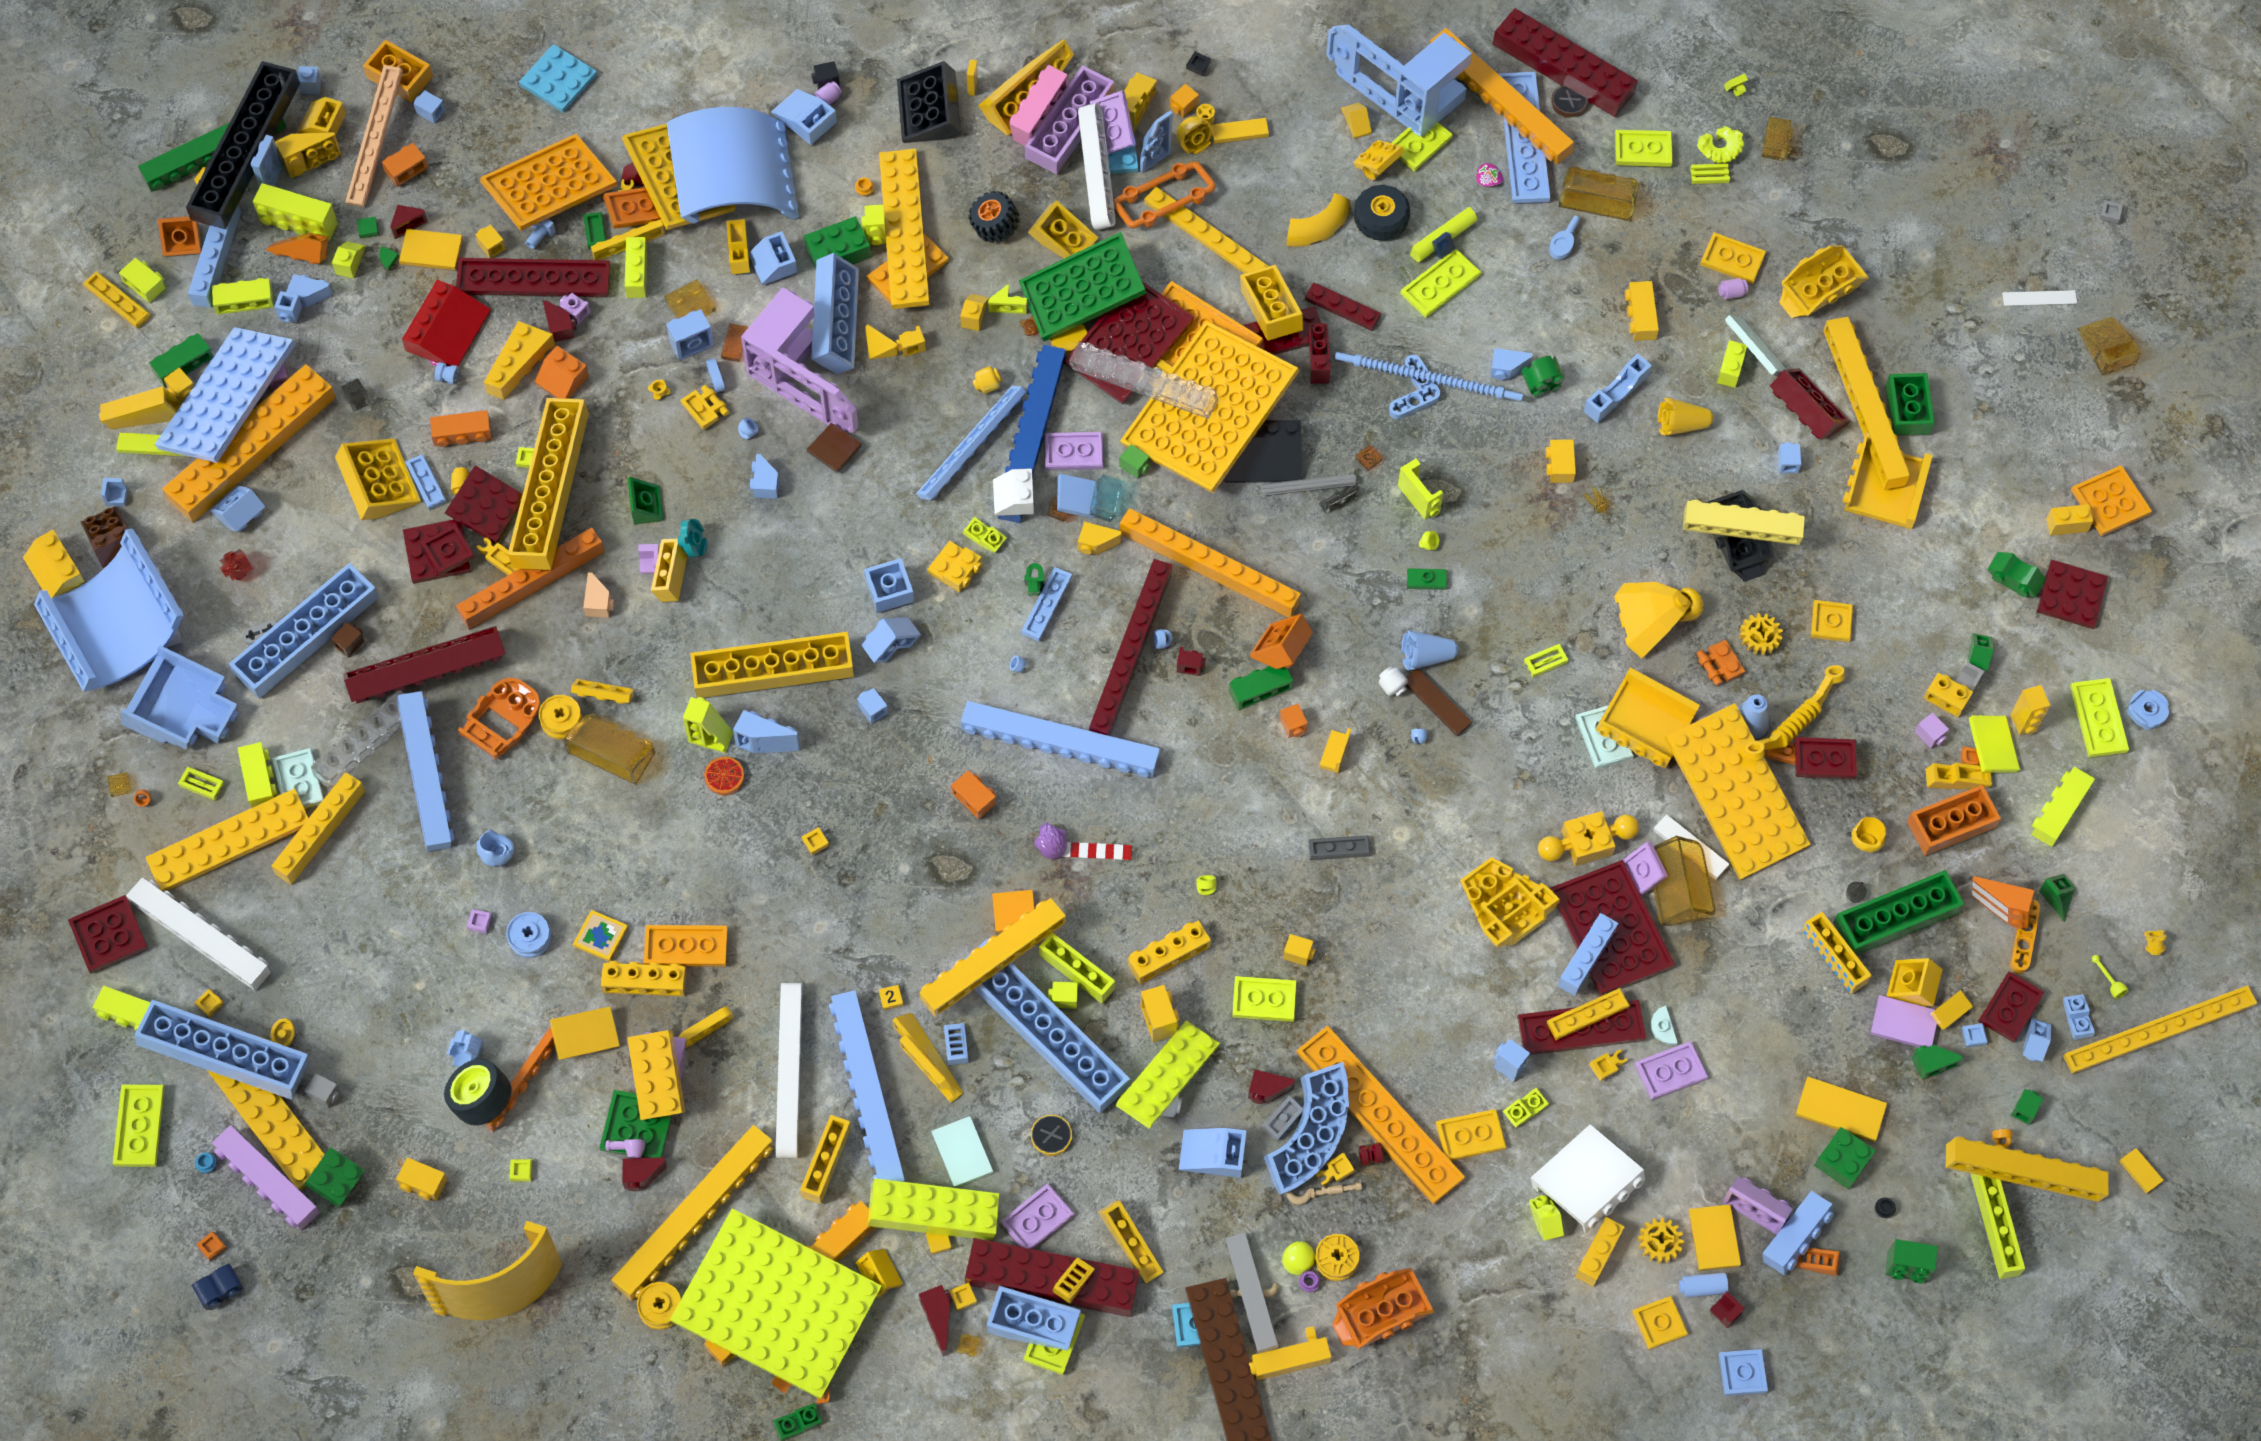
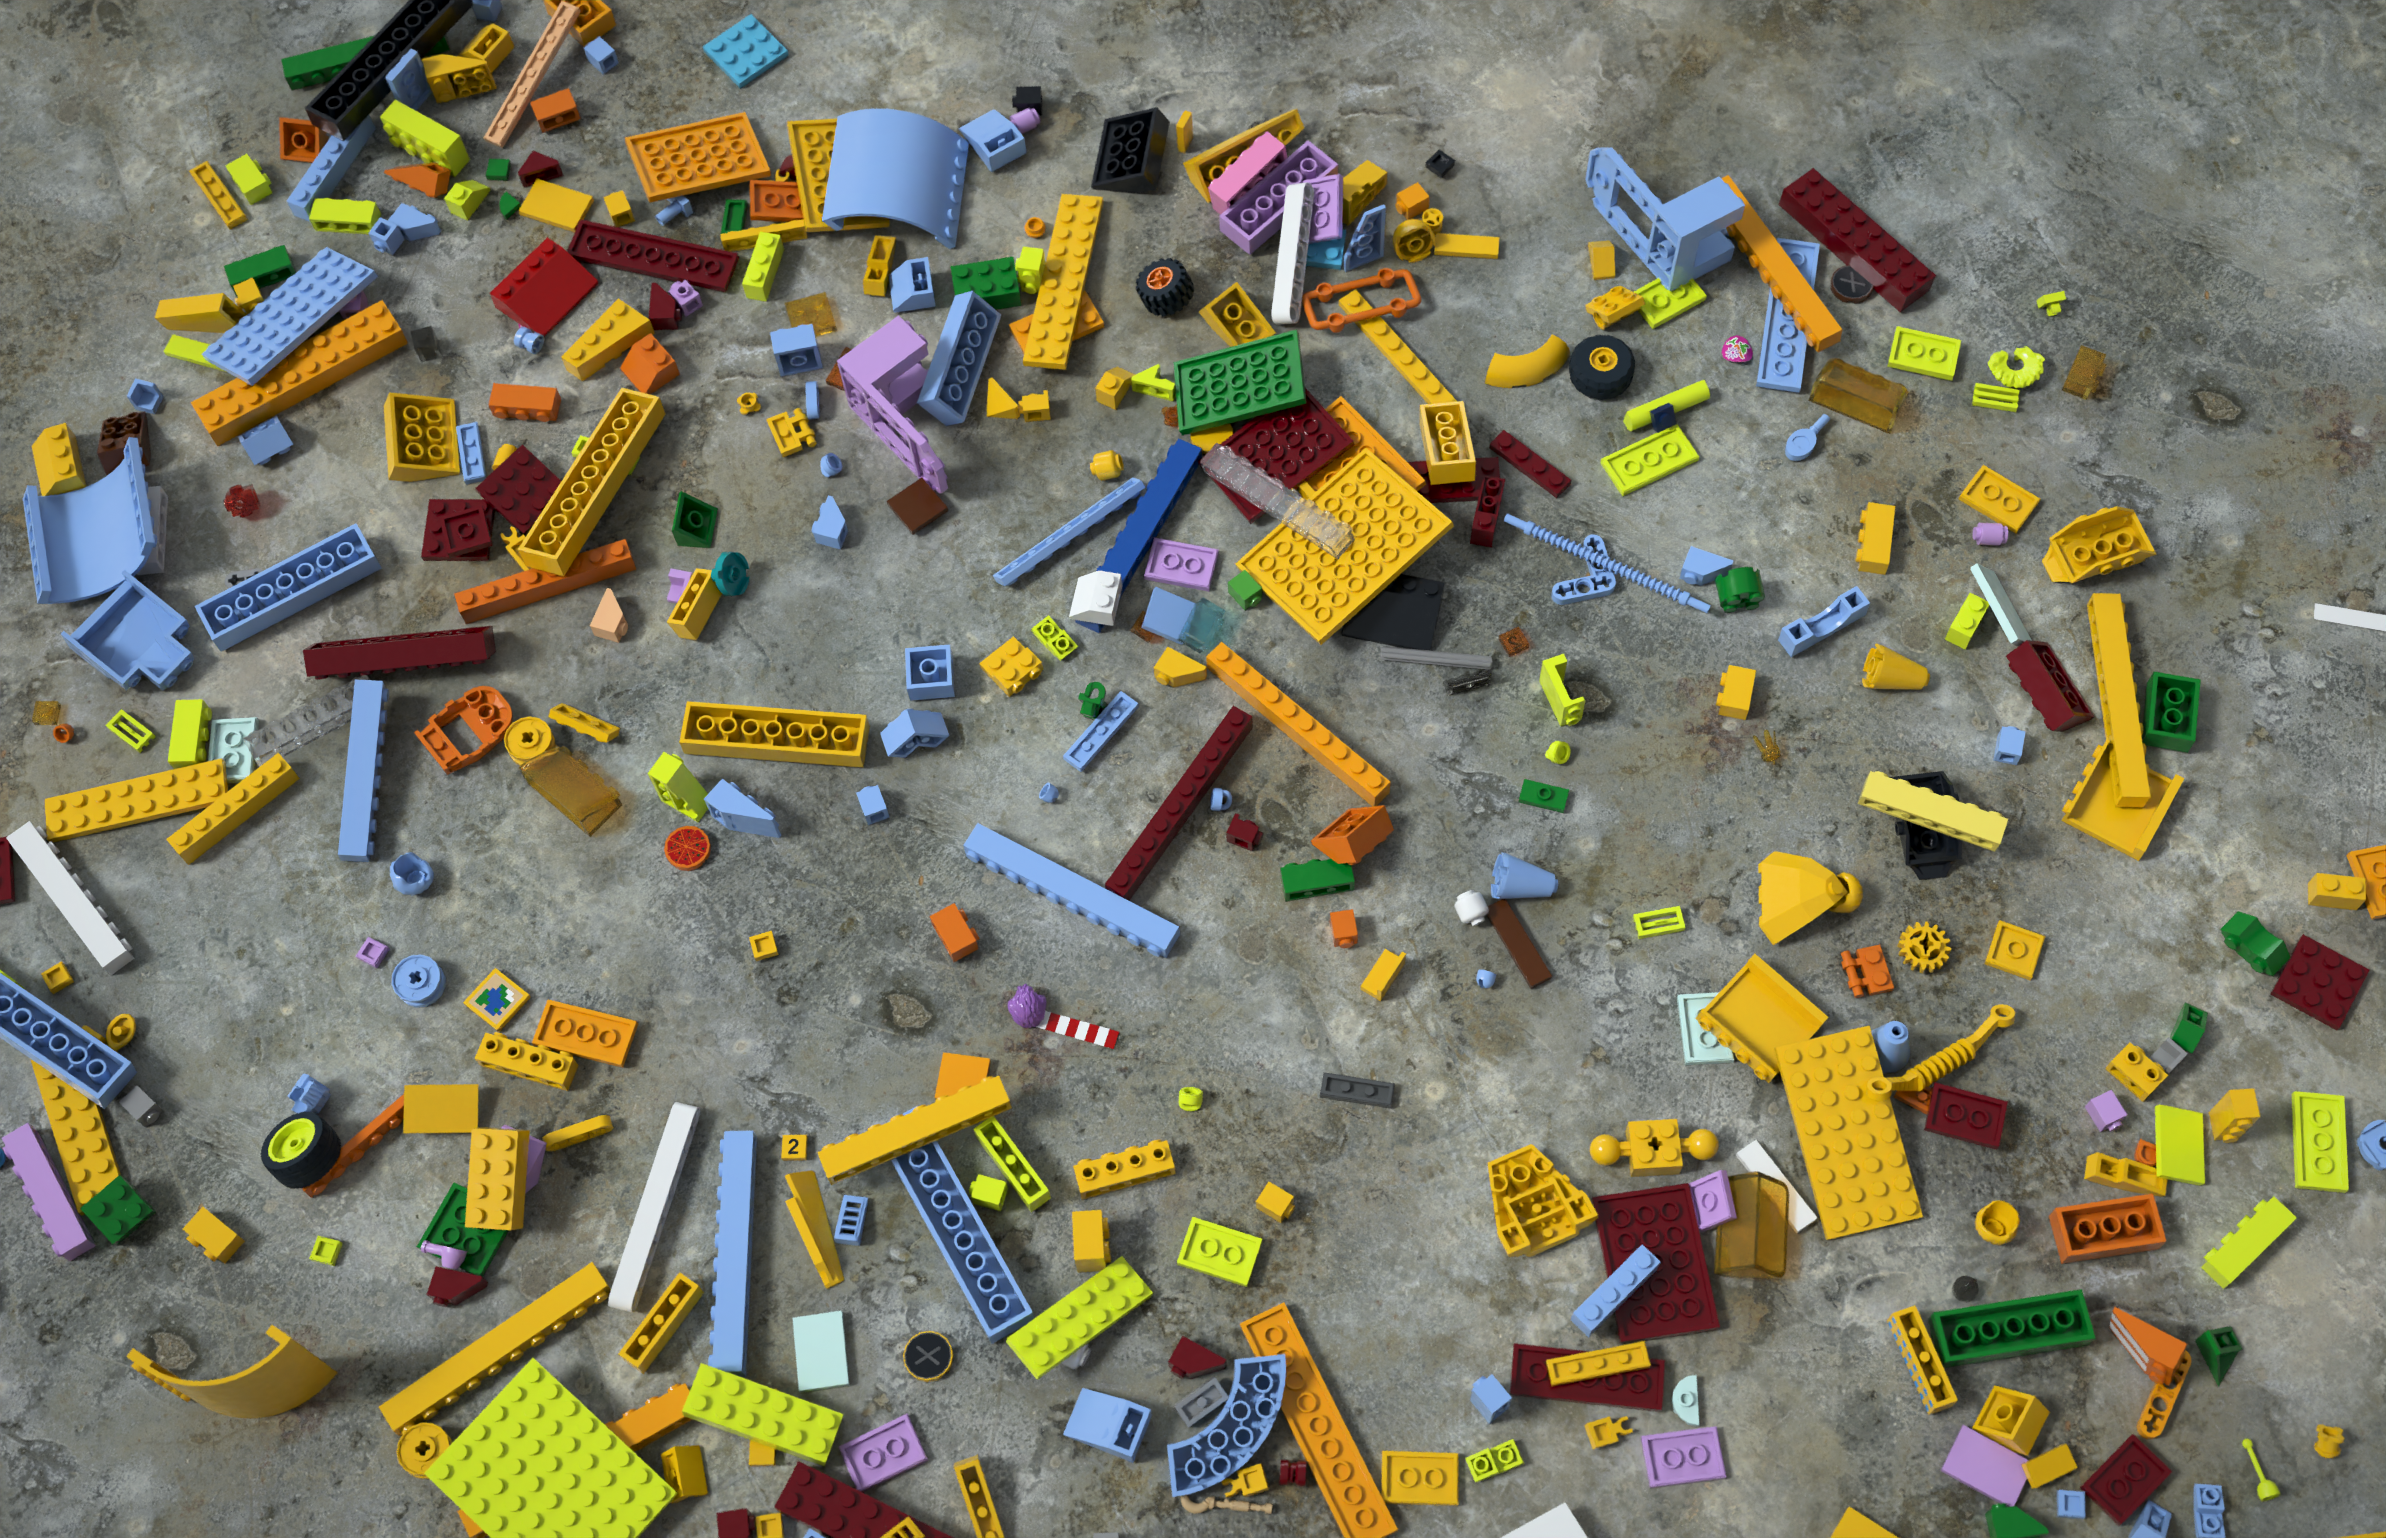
camera: 20 degrees right, 0 degrees up
(348, 639) = (333, 606): reddish brown brick -> none

